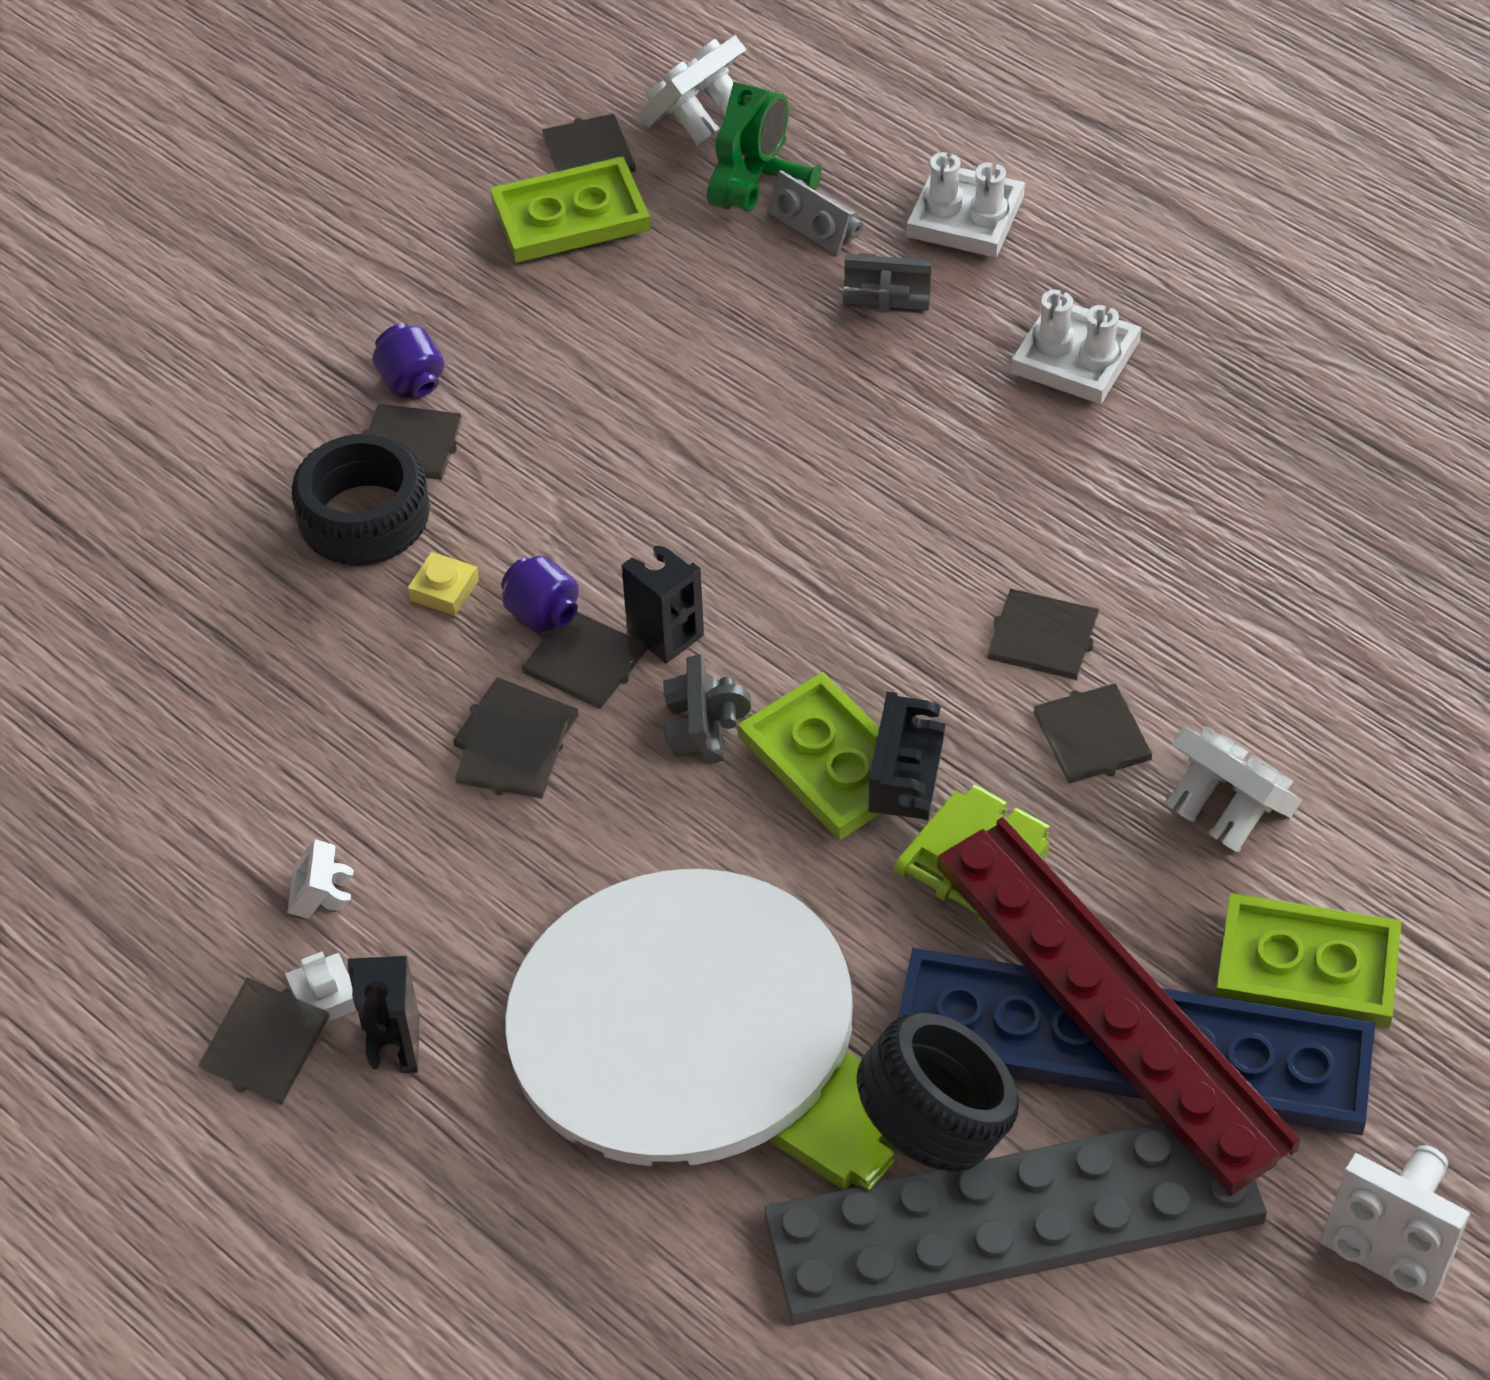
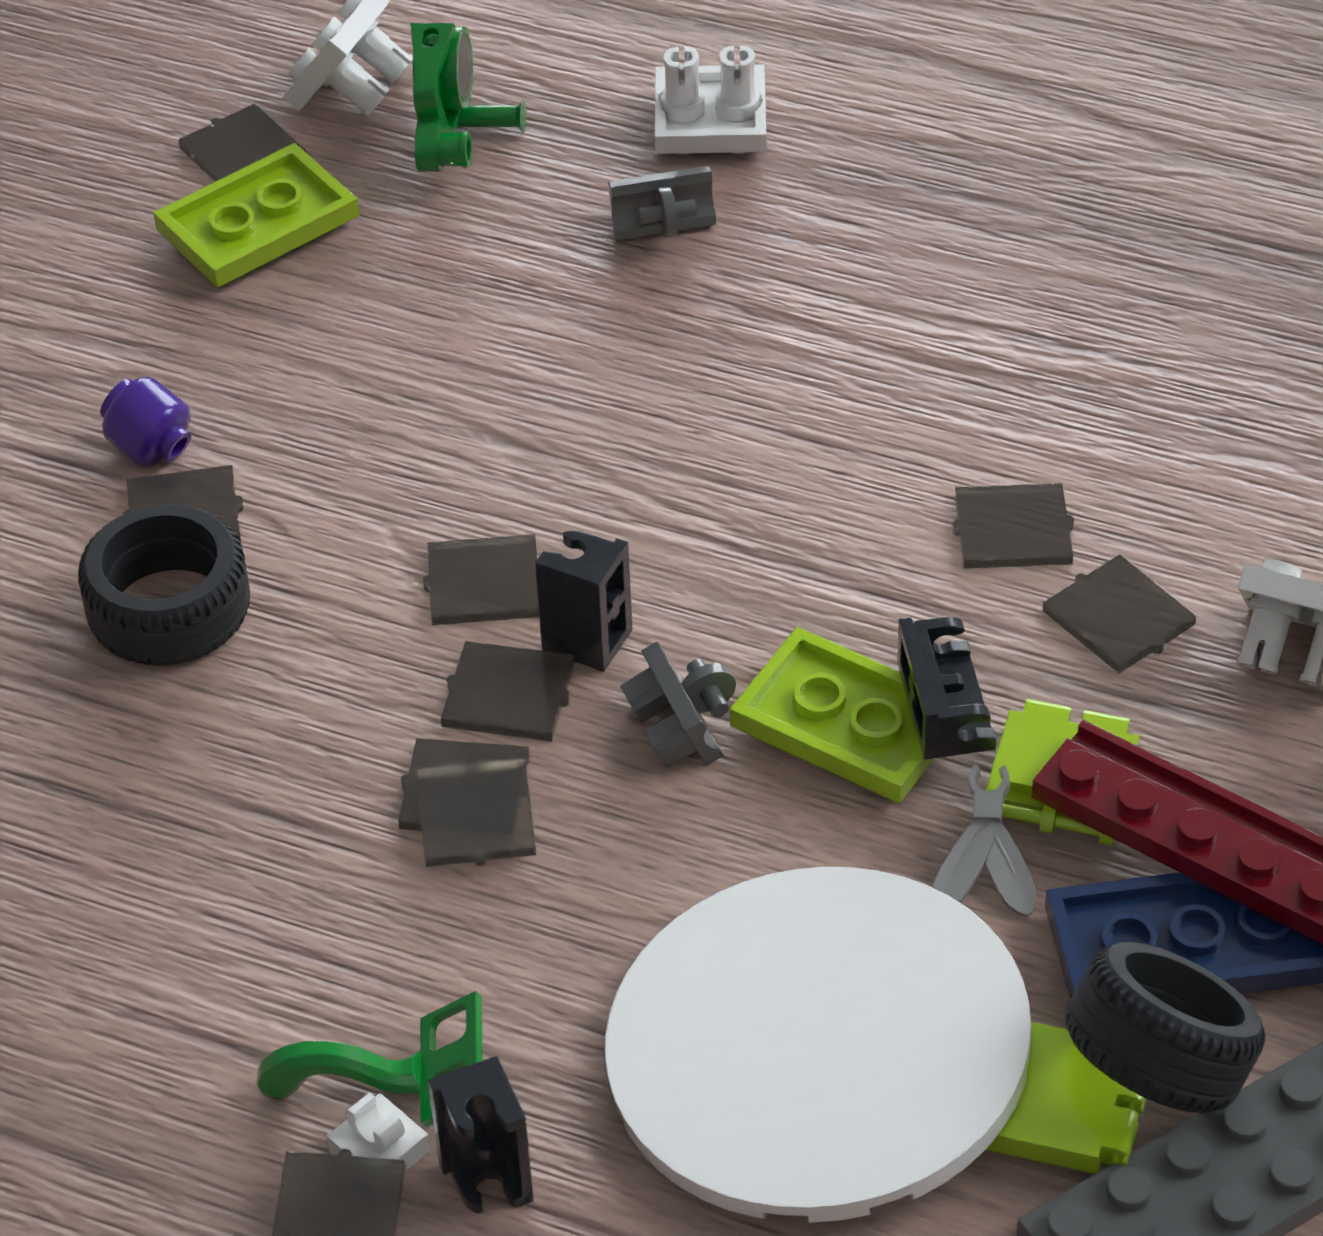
camera: 20 degrees left, 5 degrees down
(280, 912) = (291, 1065): none -> green piece
(313, 881) = (315, 1011): white tile -> none
(443, 583) = (302, 654): light yellow plate -> none
(540, 594) = (430, 631): dark purple head -> none
(598, 552) = (482, 579): none -> clear smoke piece
(812, 213) = (539, 152): light grey hinge -> none
(885, 896) = (990, 844): none -> light grey piece
(1076, 348) = (904, 219): white plate -> none

